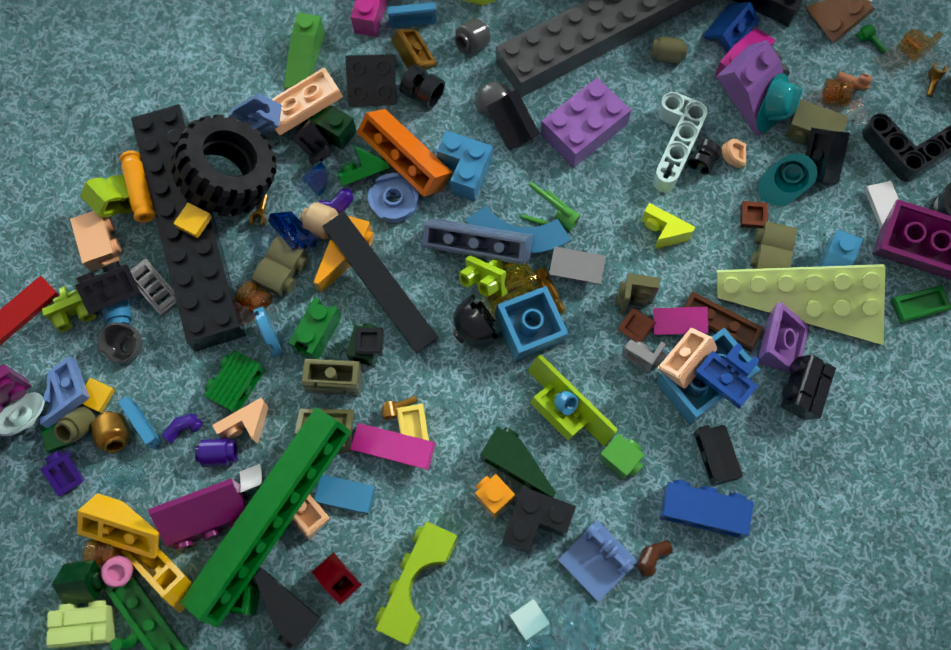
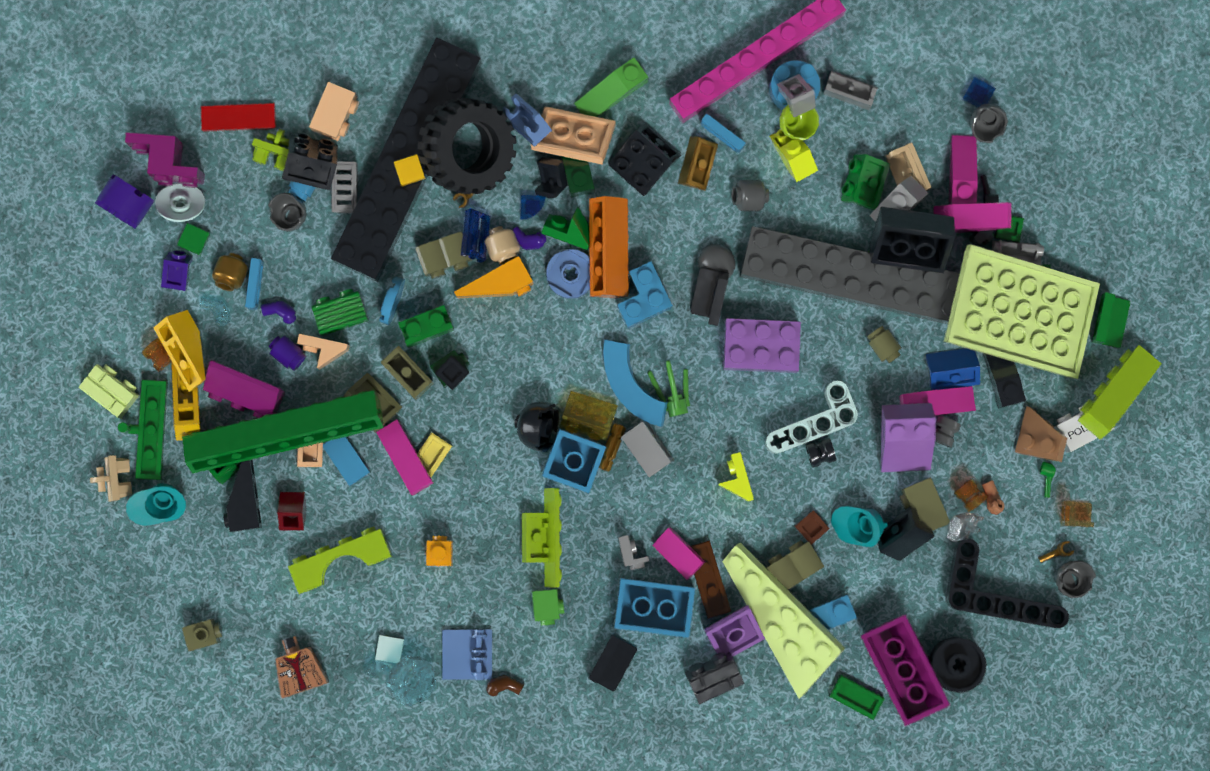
camera: 40 degrees right, 15 degrees up
(64, 391) = (222, 212): medium blue wing -> none
(74, 425) = (210, 247): olive brick -> none
(78, 582) = (130, 362): dark green brick -> none
(99, 395) = (240, 233): yellow tile -> none
(107, 196) = (372, 89): lime brick -> none
(117, 571) = (159, 377): bright pink tile -> none
(137, 186) = (394, 102): light orange axle -> none
(250, 477) = (293, 392): white sticker -> none
(252, 297) = (405, 261): clear orange wheel -> none
(380, 282) = (499, 333): black tile -> none
(389, 408) = (426, 429): pearl gold hand -> none
(420, 85) = (674, 212): black wheel -> none
(477, 241) = (593, 367): sand blue brick -> none
(488, 276) = (576, 399): lime hips -> none
(512, 458) = (475, 539): dark green slope -> none
(534, 512) = (452, 586): black brick -> none
(566, 402) = (543, 537): dark azure hinge -> none
(636, 325) = (646, 528): copper tile -> none
(638, 289) = (668, 510): olive bracket -> none
(687, 357) = (648, 585): light nougat slope -> none
(707, 509) = (566, 689): blue brick -> none
(729, 375) = (660, 622): blue plate -> none
(734, 153) = (846, 469): light nougat tile -> none
(780, 102) = (912, 465): teal piece -> none
(881, 198) = (914, 604): white tile -> none

